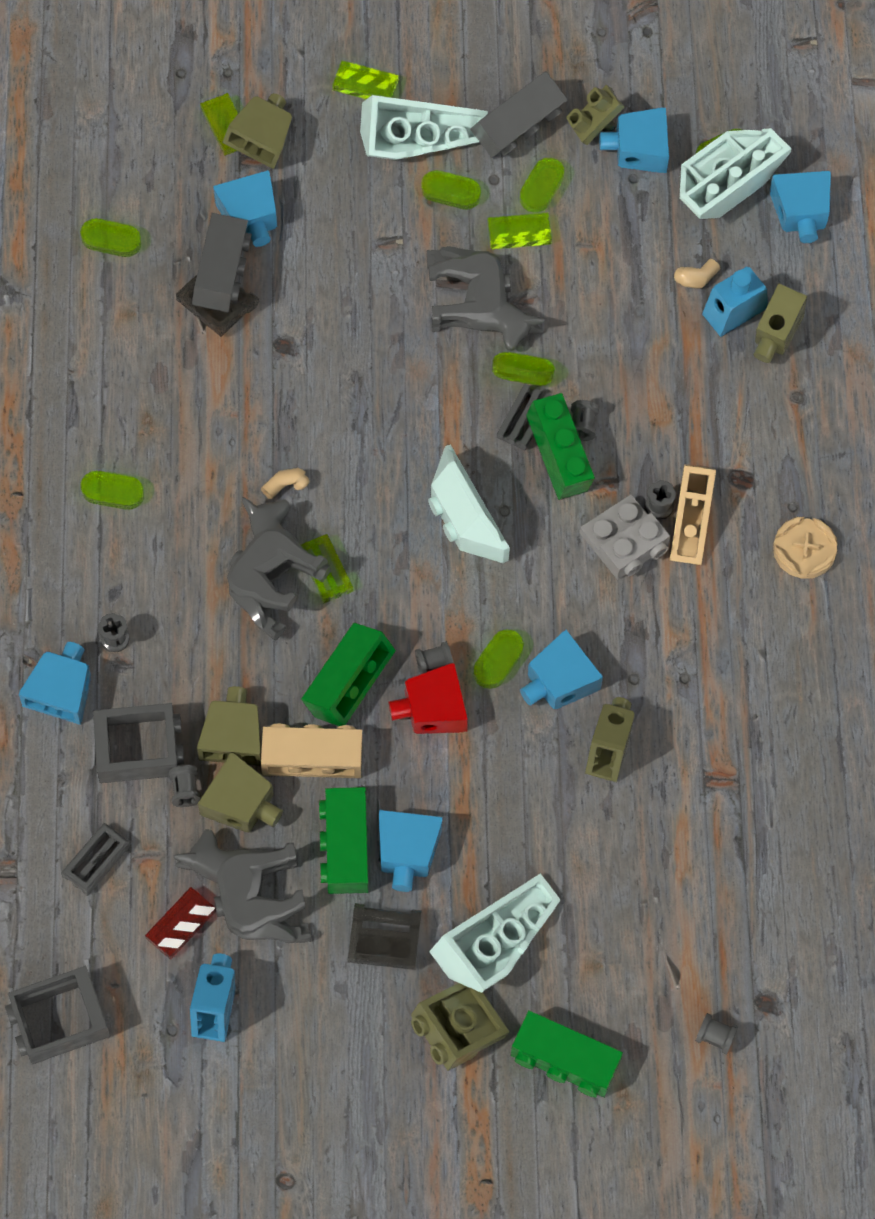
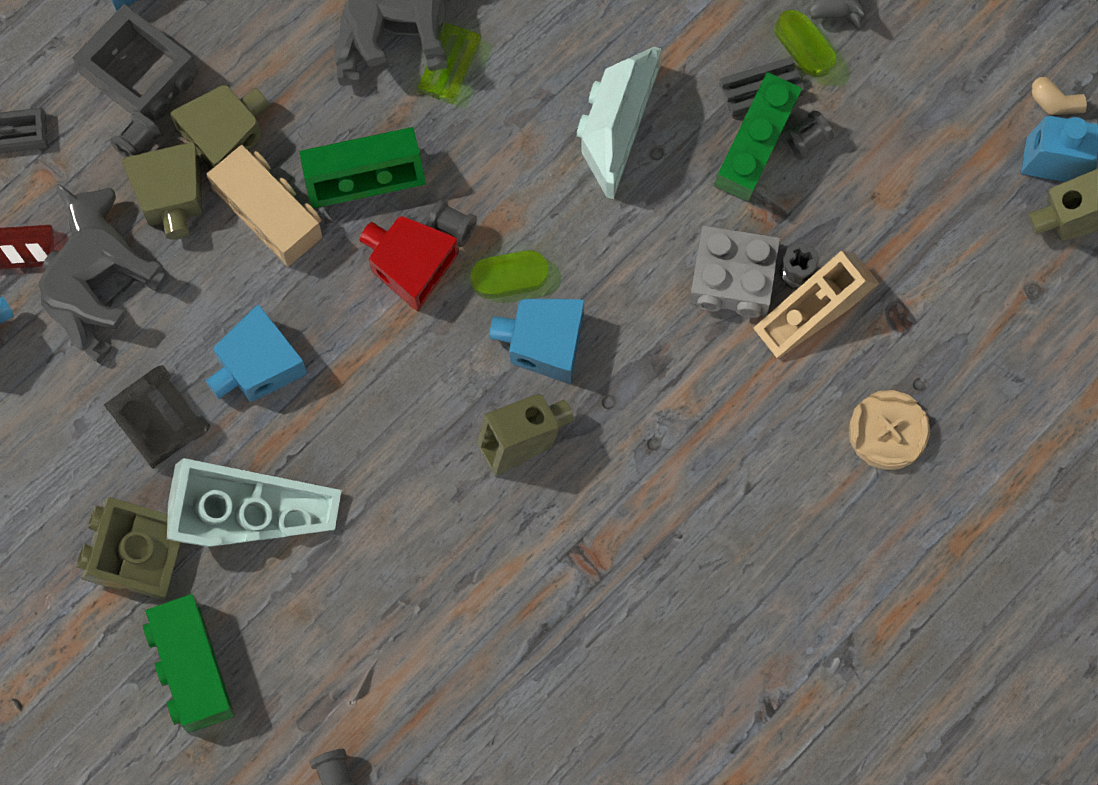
camera: 50 degrees right, 5 degrees up
(344, 840) = (211, 305): green brick -> none

